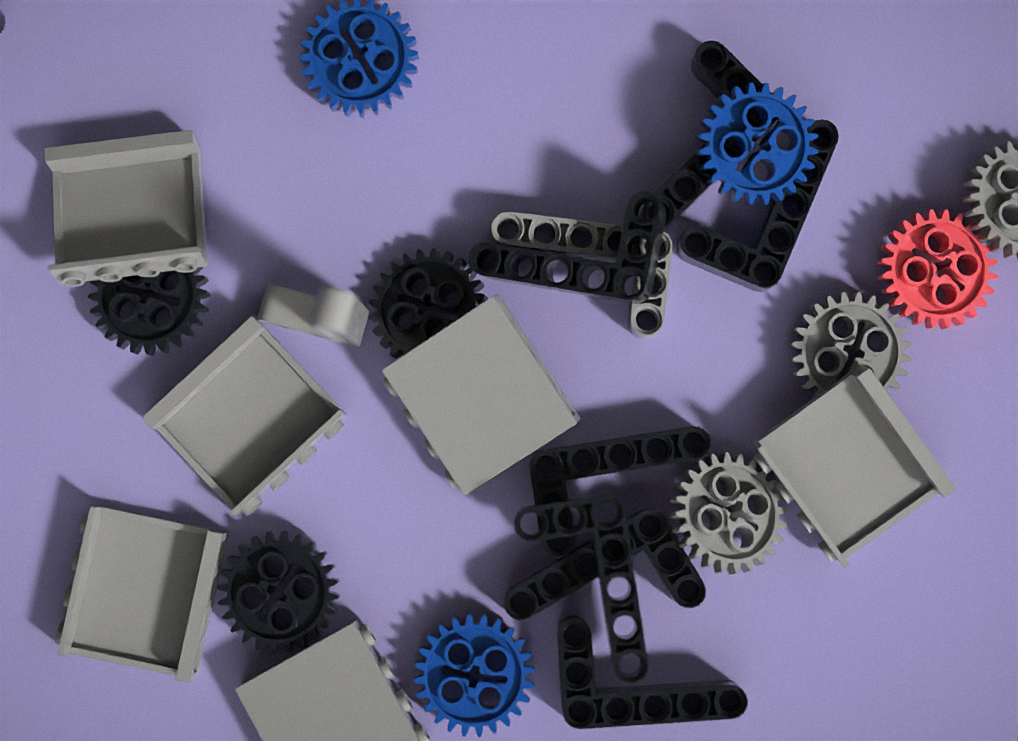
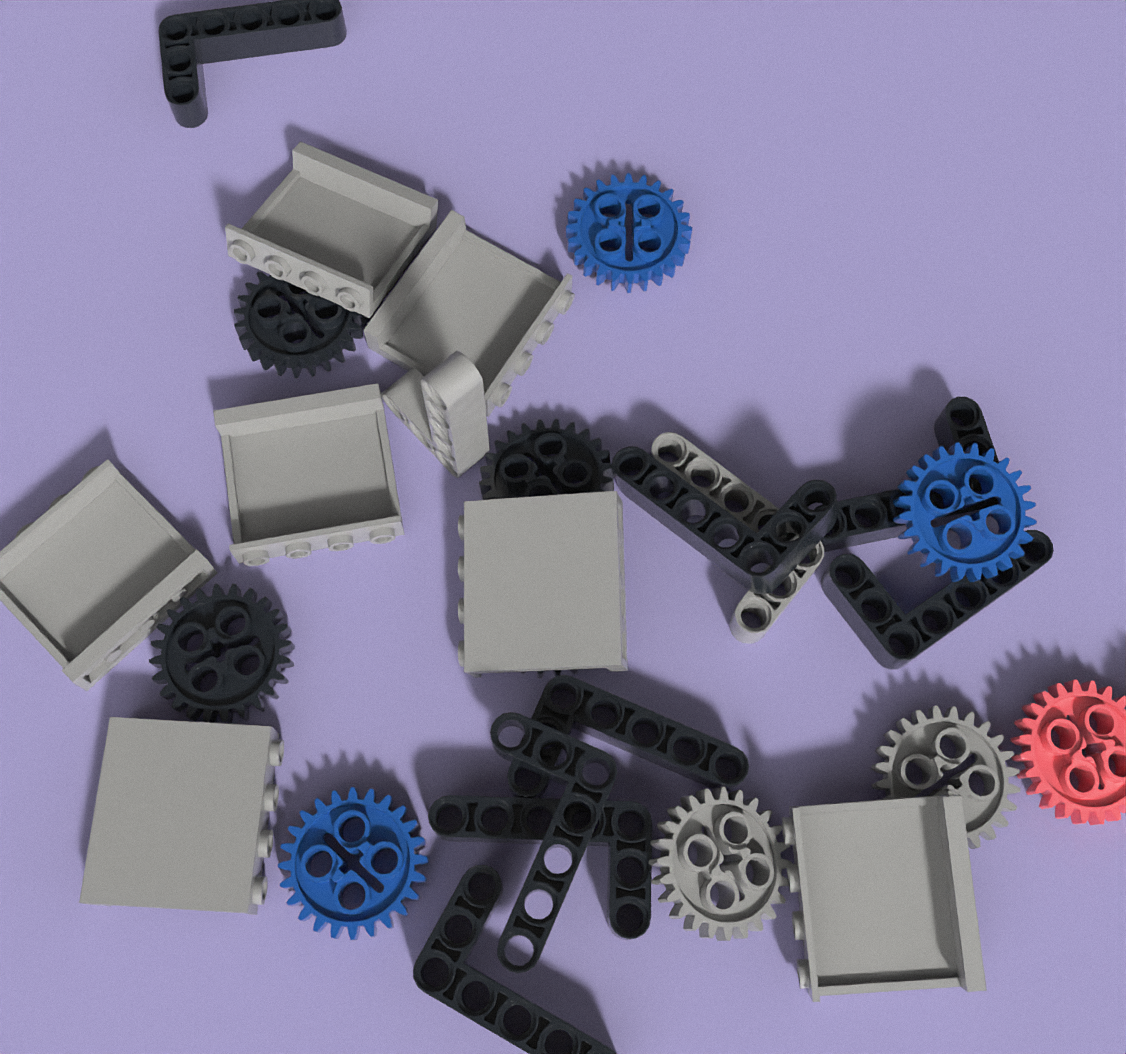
camera: 30 degrees right, 15 degrees down
(280, 208) = (469, 301): none -> light grey panel

